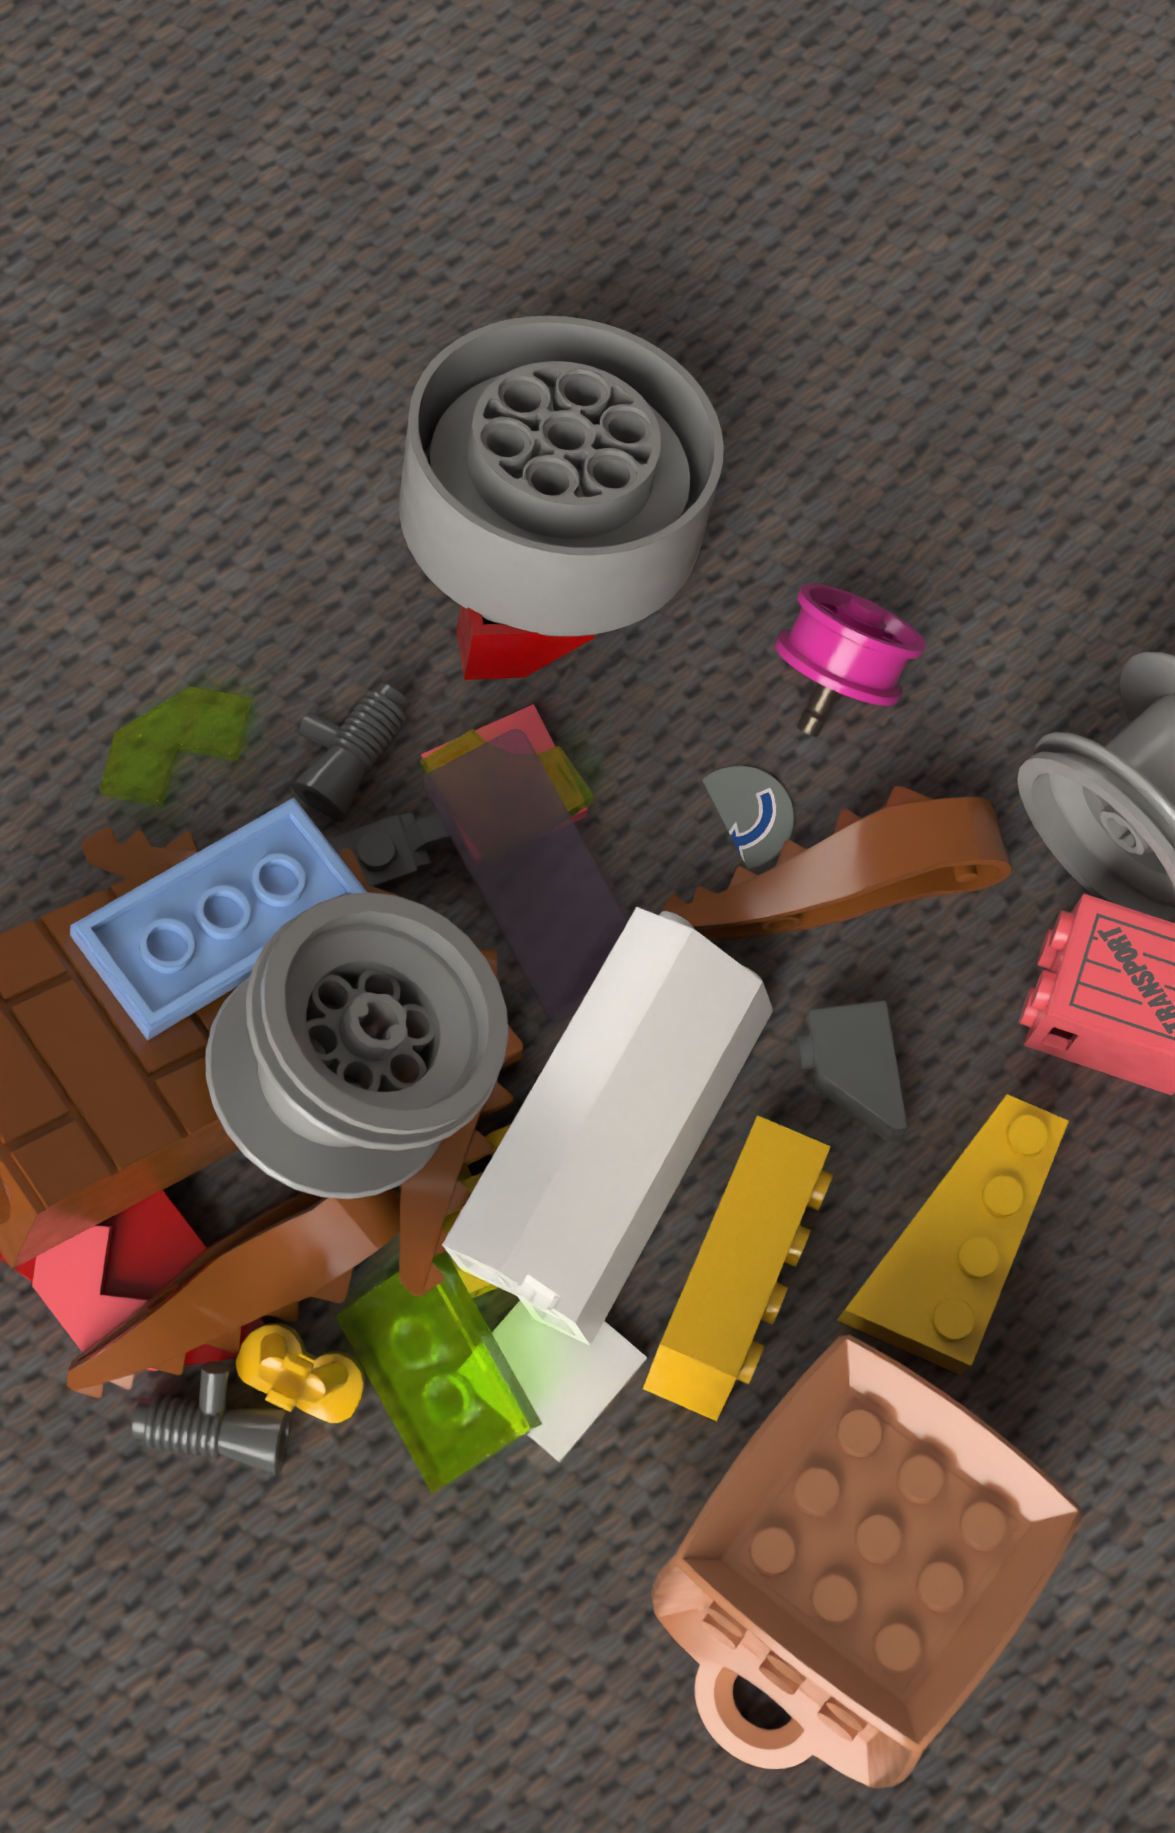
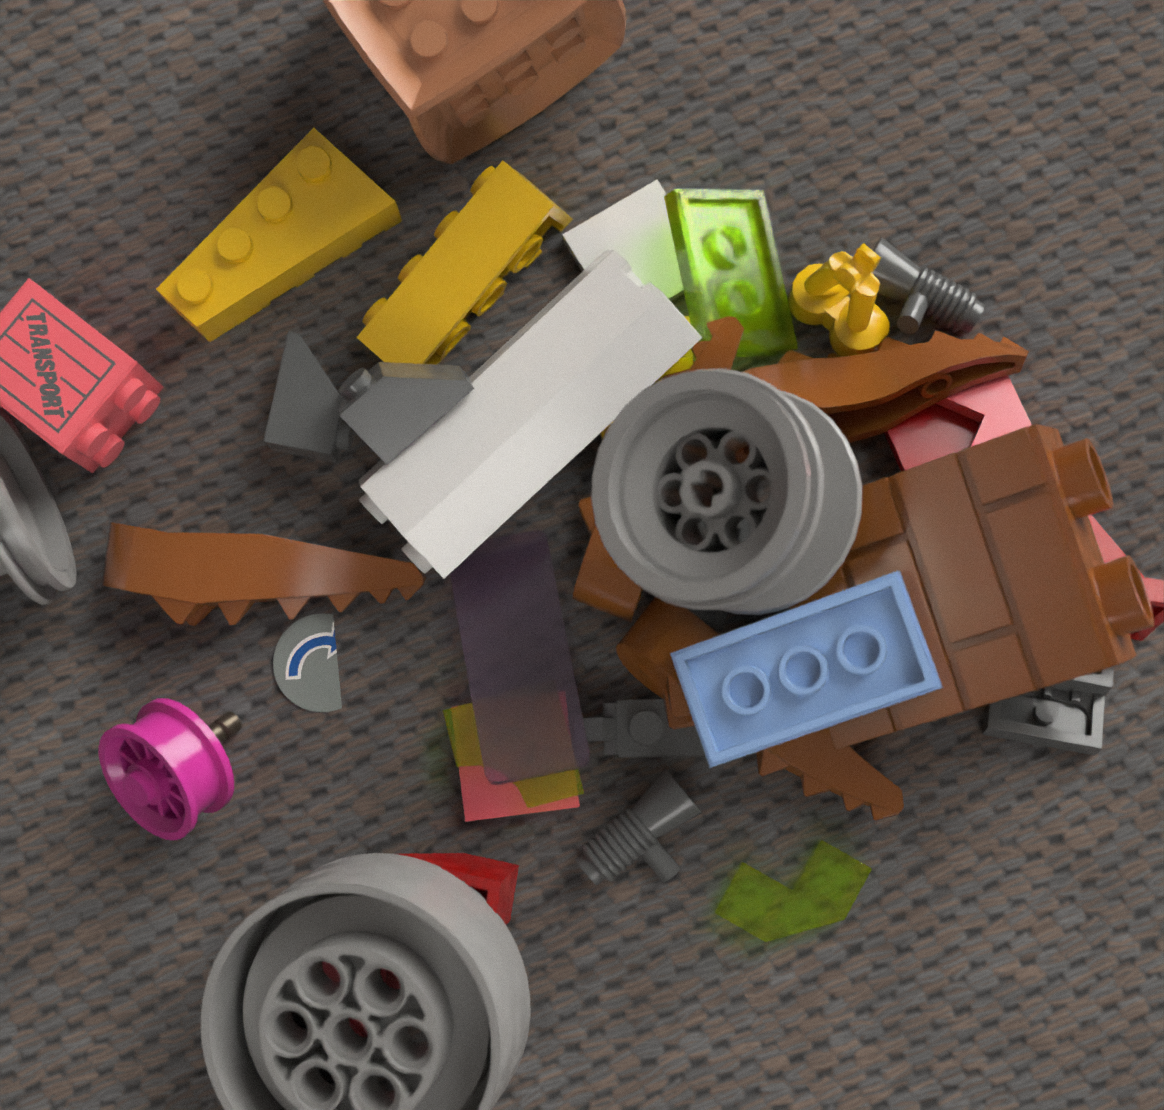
camera: 160 degrees left, 10 degrees up
(752, 1082) = (399, 402): none -> dark grey slope

